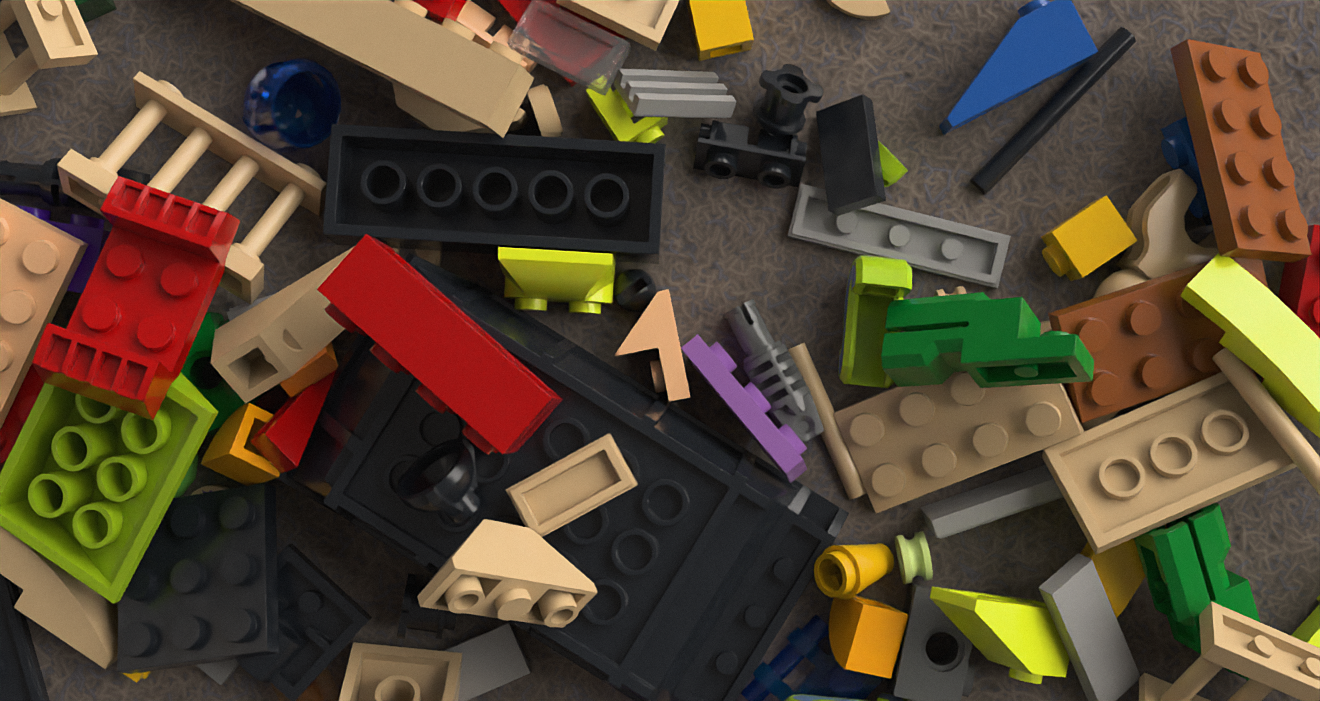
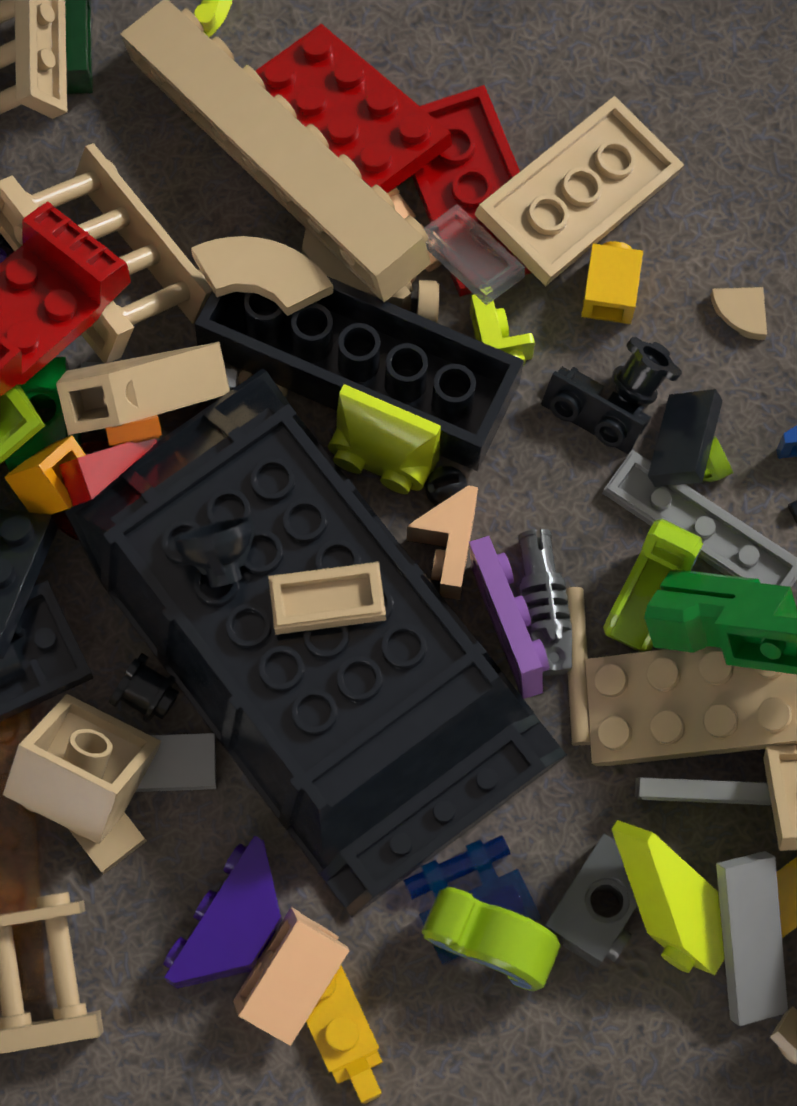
camera: 15 degrees right, 15 degrees down
(295, 88) = (214, 206): clear blue helmet -> none
(367, 150) = (262, 269): none -> tan tile
(440, 345) = (264, 429): red brick -> none
(509, 576) = (242, 642): tan slope -> none
(674, 93) = (548, 327): light grey tile -> none
(849, 569) = (550, 798): yellow cone -> none
(866, 635) = (542, 862): light orange brick -> none
(913, 557) = (609, 811): yellowish green bush -> none

